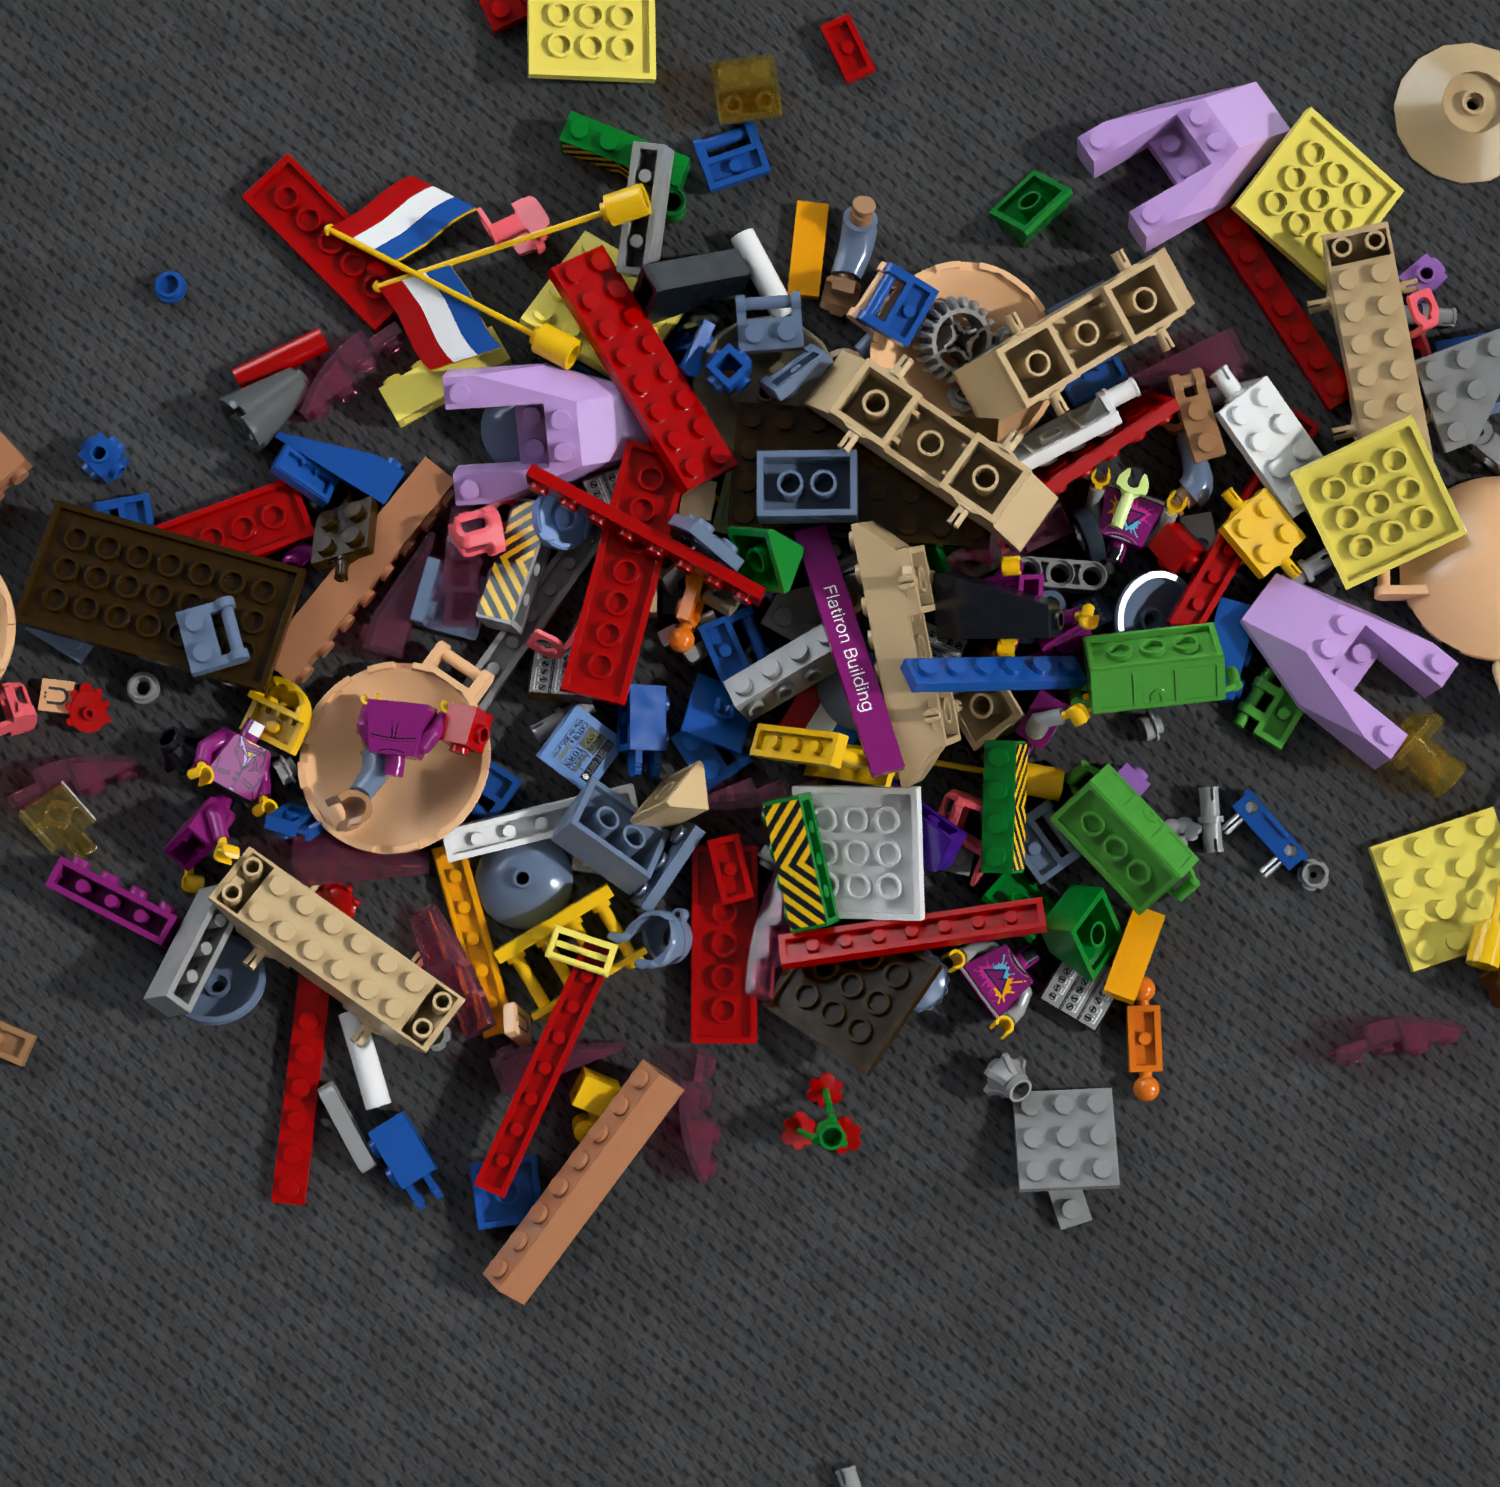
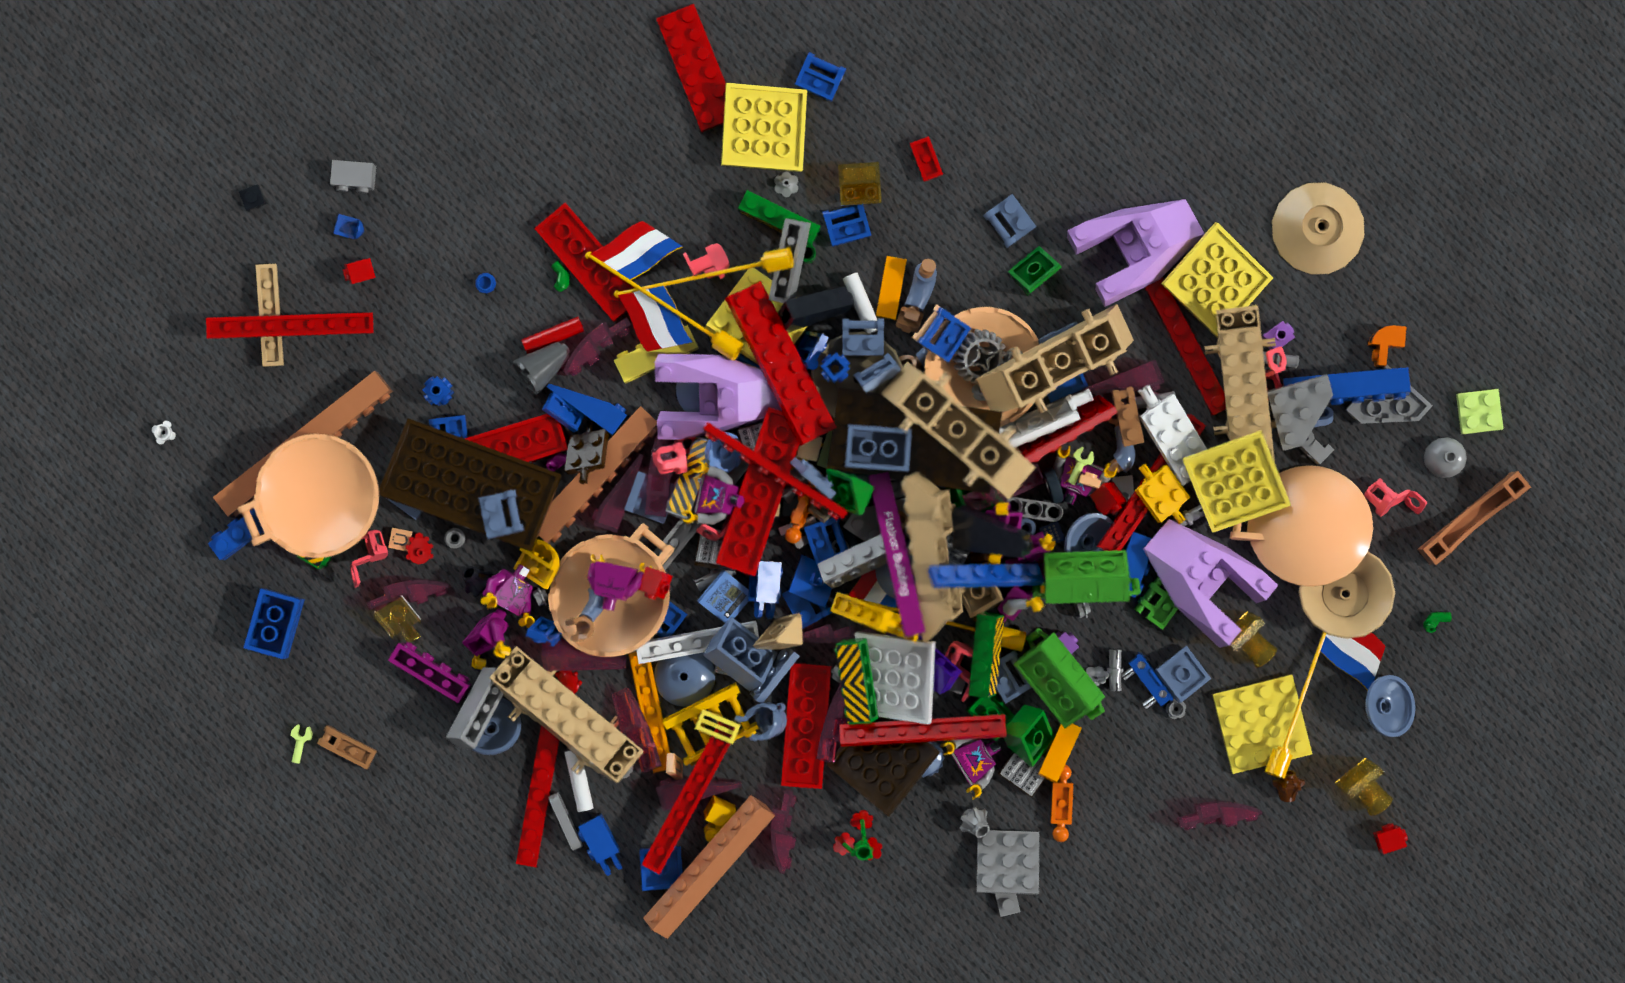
camera: 10 degrees right, 5 degrees up
(291, 269) = (563, 276): none -> green arm
(553, 586) = (715, 497): none -> torso
(632, 110) = (788, 189): none -> light grey plant
(730, 869) = (813, 680): red plate -> none
(992, 127) = (1014, 216): none -> sand blue plate
(1145, 519) = (1089, 480): none -> light nougat plate
(1319, 818) = (1182, 674): none -> sand blue plate

